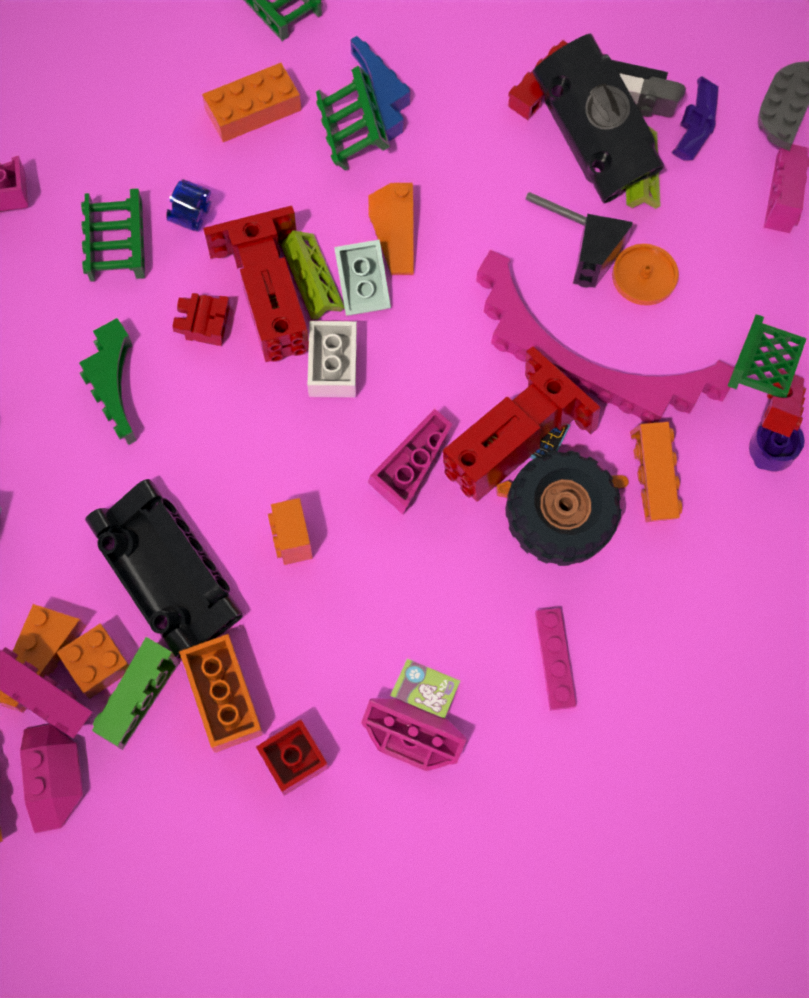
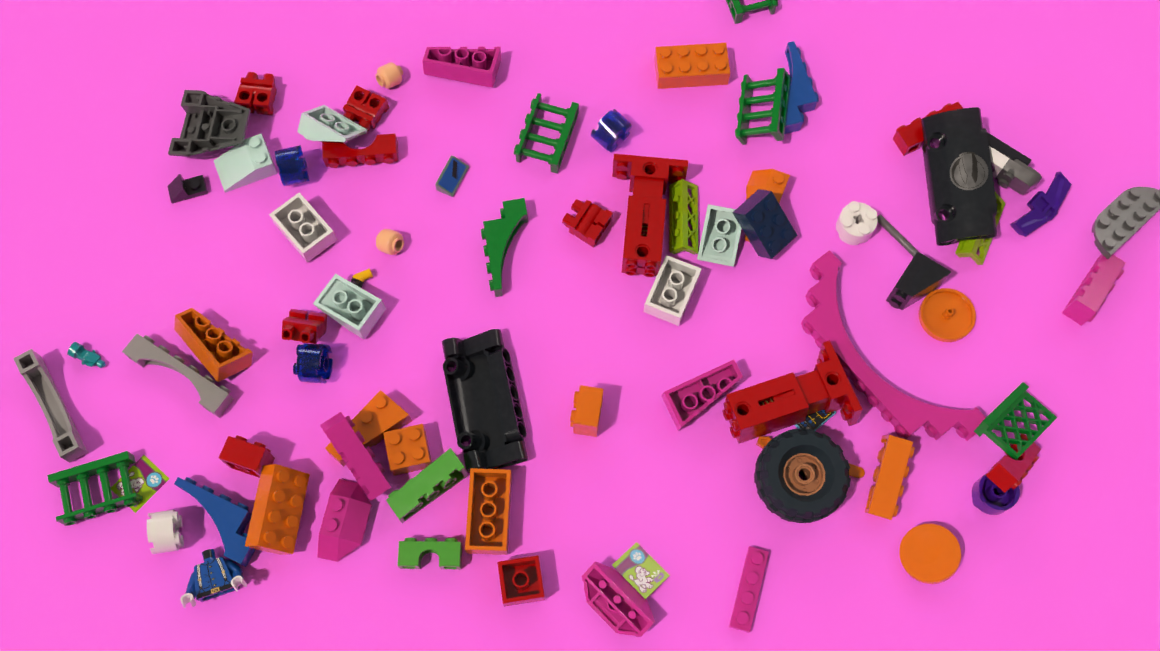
camera: 25 degrees right, 0 degrees up
(19, 325) = (451, 176): none -> slope
(149, 777) = (412, 551): none -> bright green arch
(407, 245) = (765, 223): none -> dark blue brick
(507, 210) = (856, 223): none -> white brick
(735, 538) = (930, 553): none -> orange piece

